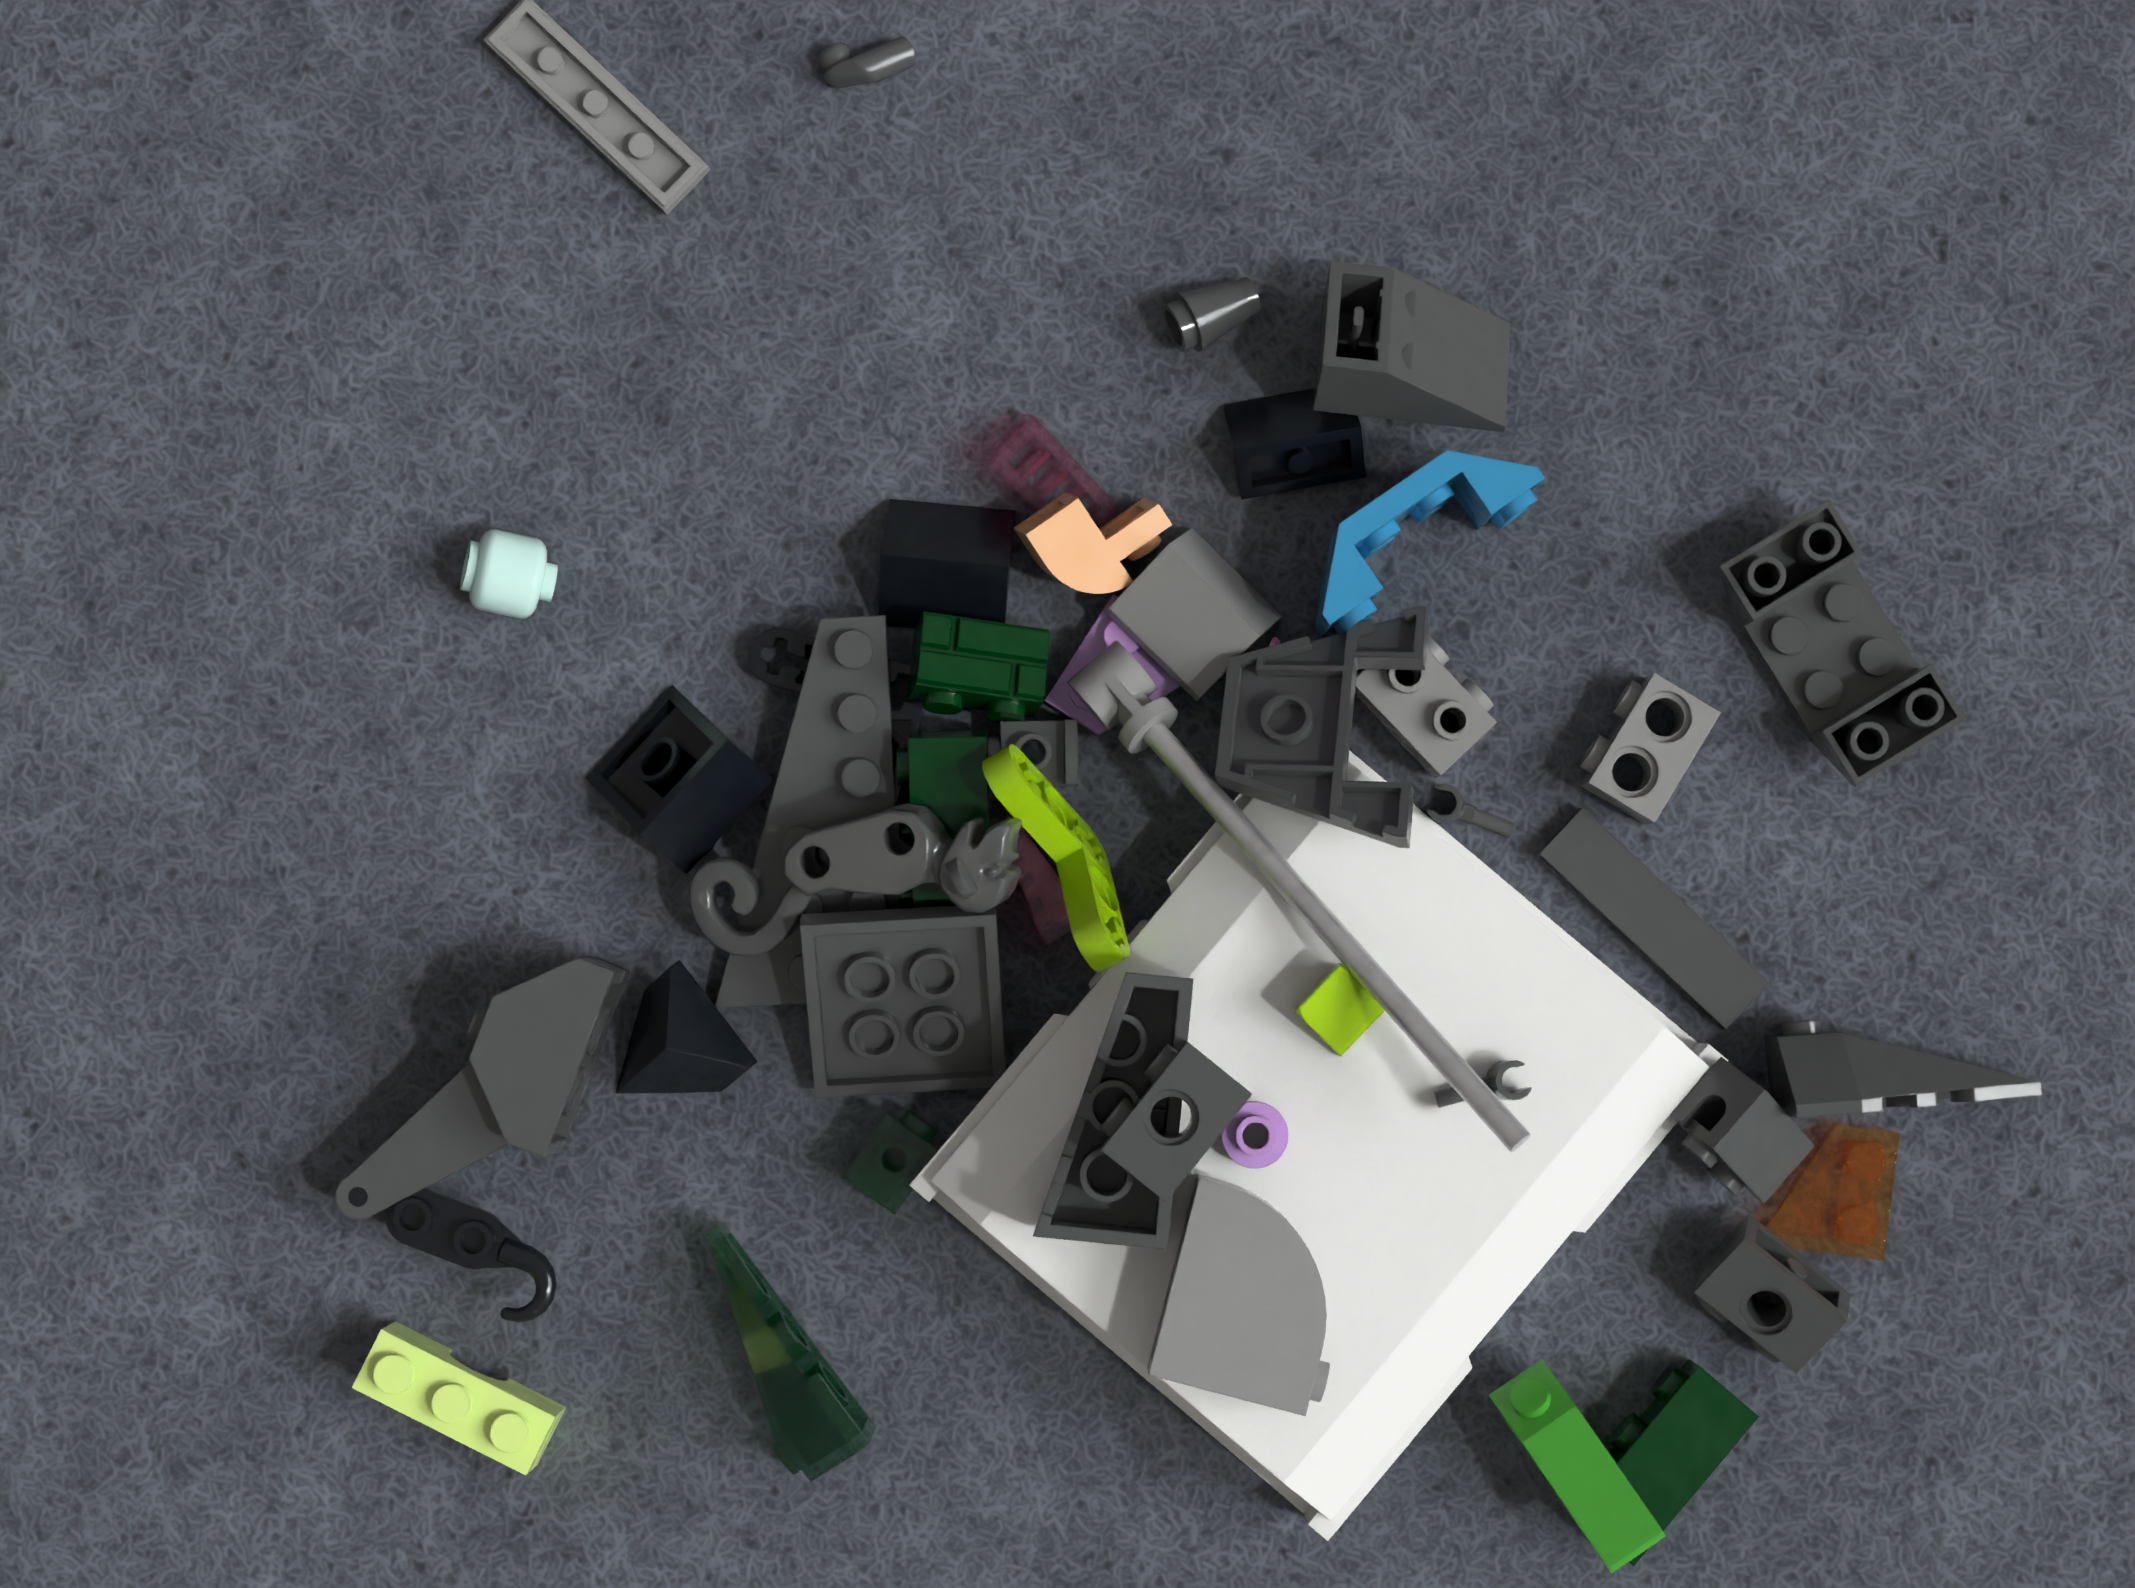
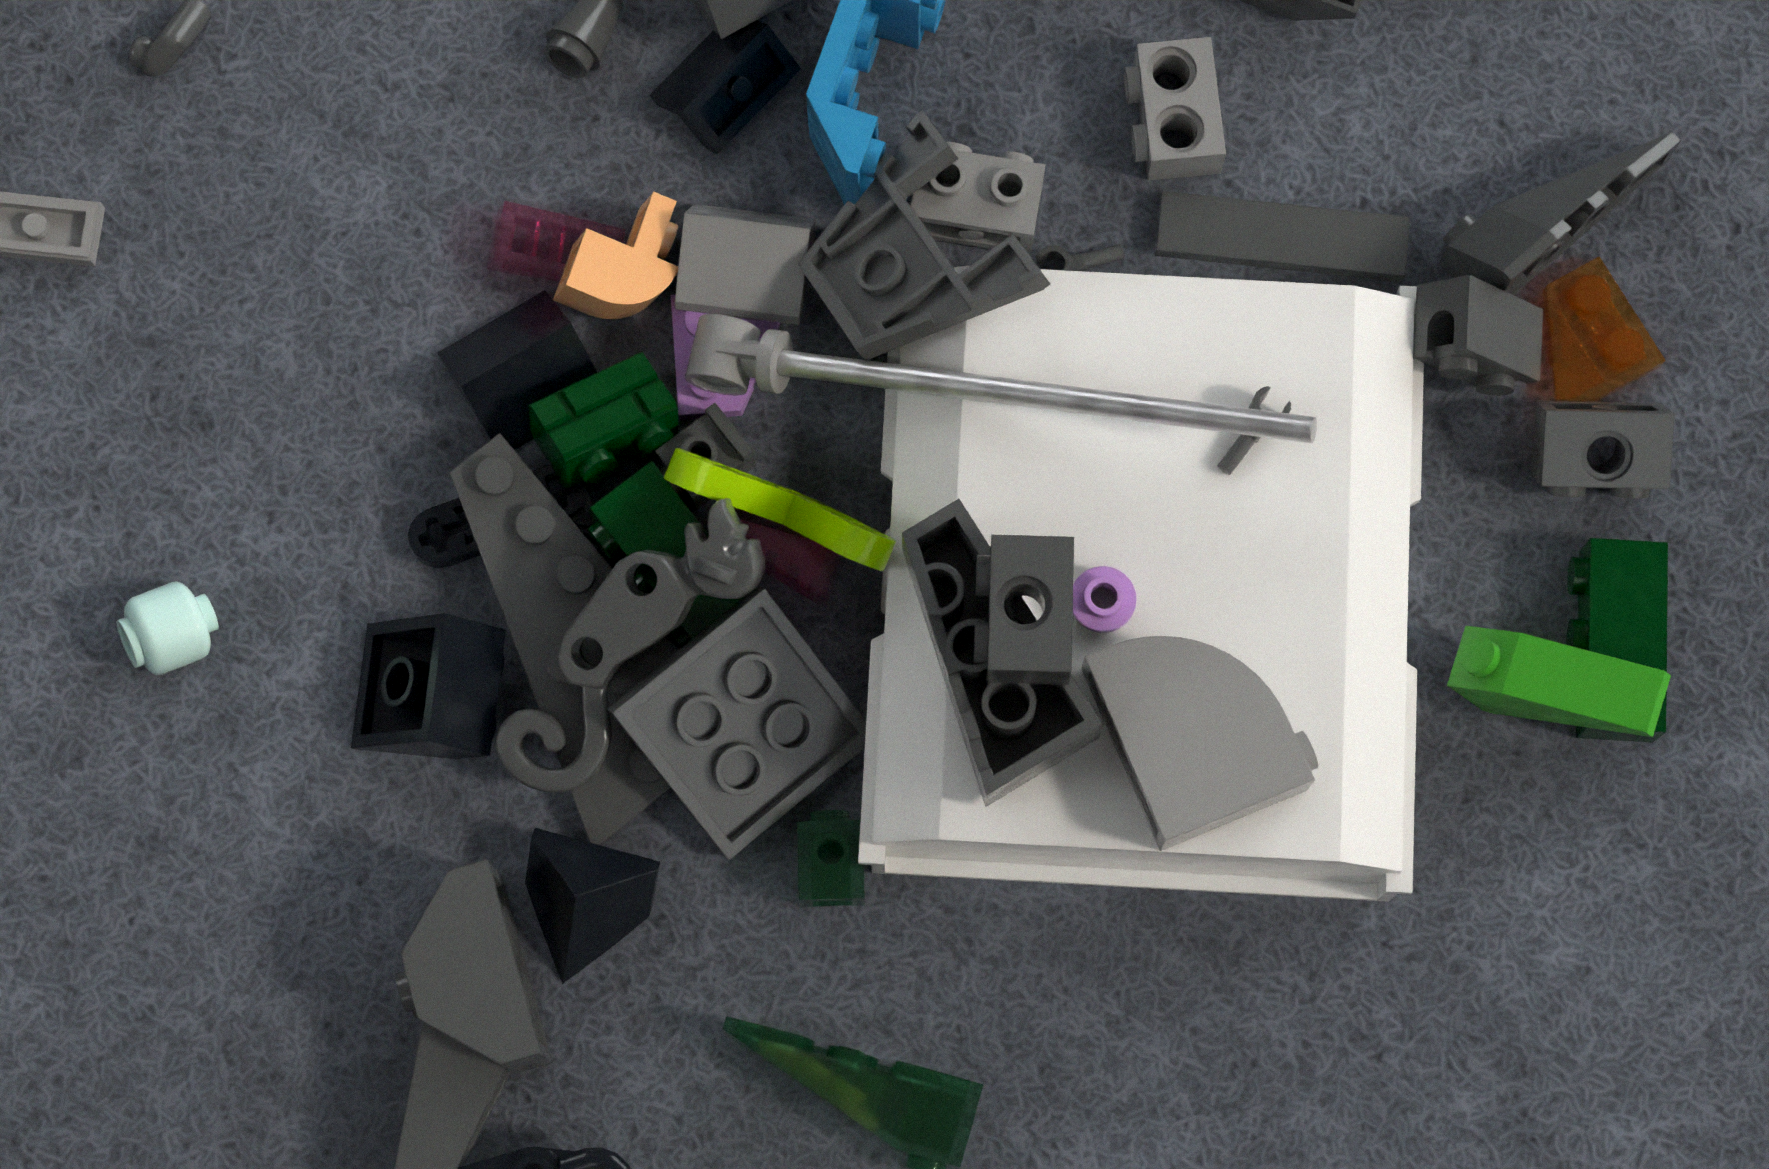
camera: 40 degrees left, 10 degrees down
(1339, 1009) = (1093, 454): lime slope -> none

